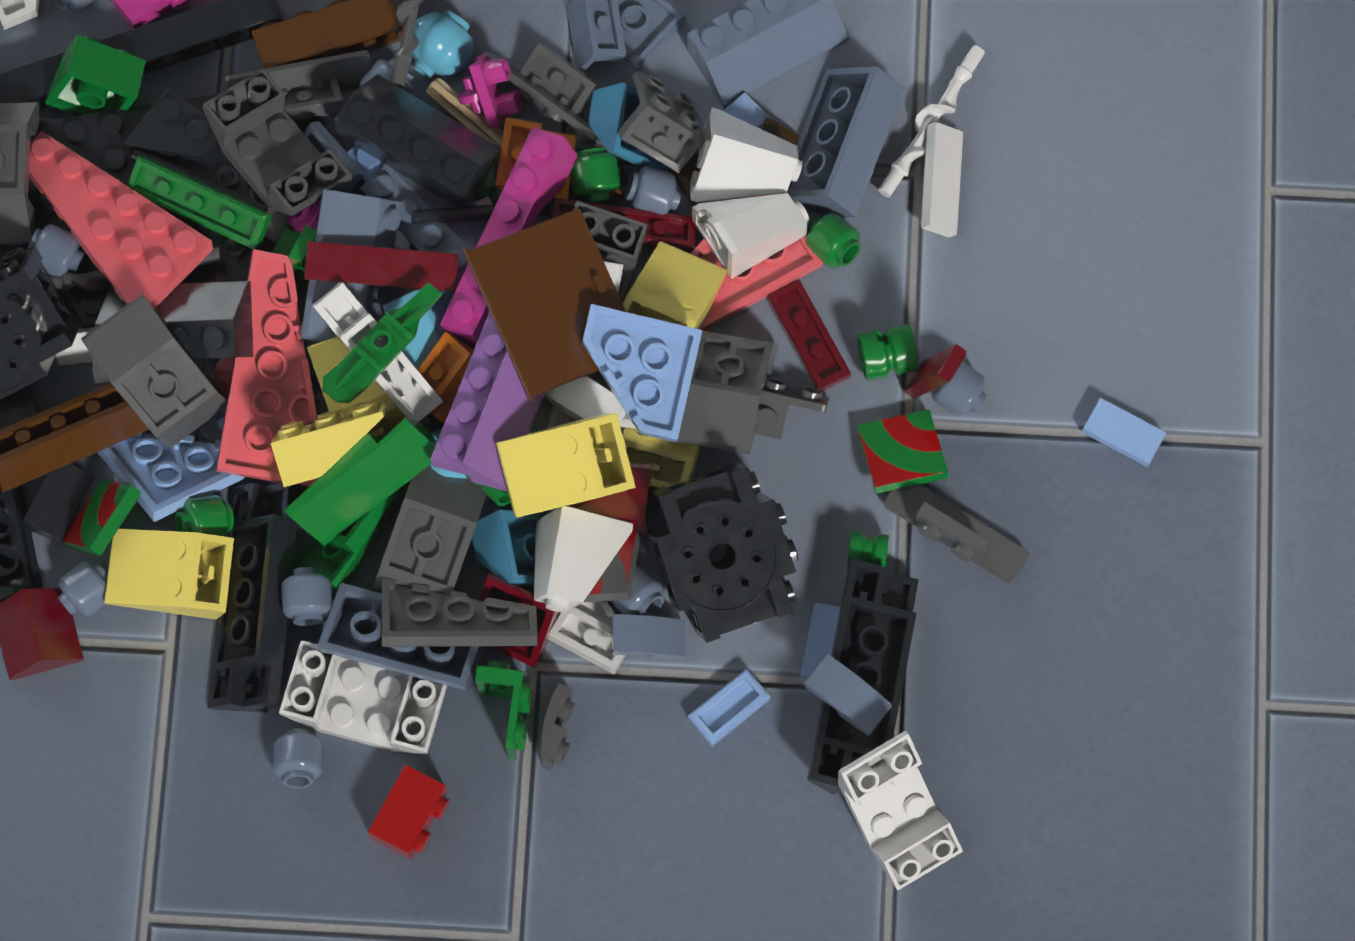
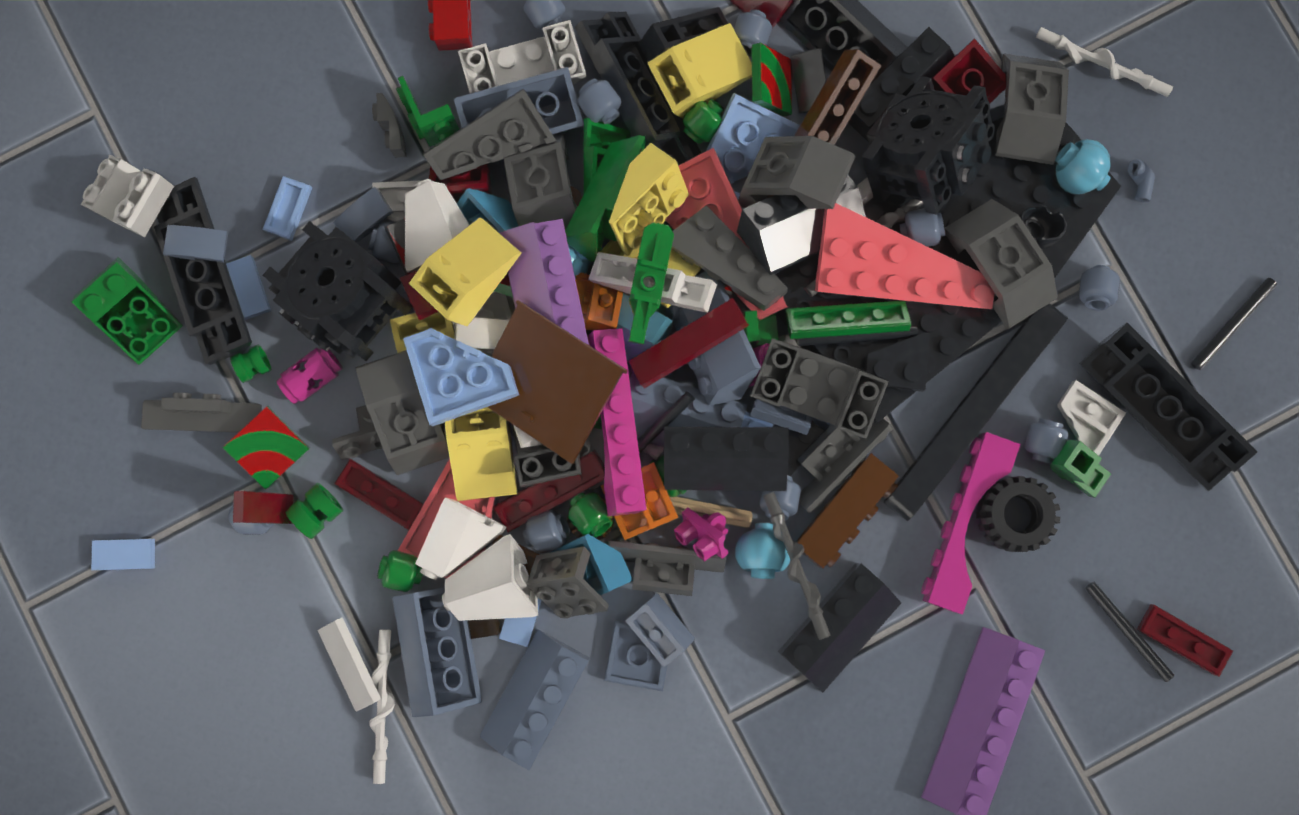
camera: 150 degrees right, 10 degrees up
(95, 78) = (980, 372): green slope -> none
(162, 632) = (675, 31): none -> black slope
(284, 336) = (725, 257): none -> dark grey wing
(828, 499) = (299, 384): none -> dark pink piece
(975, 694) = (127, 311): none -> green slope

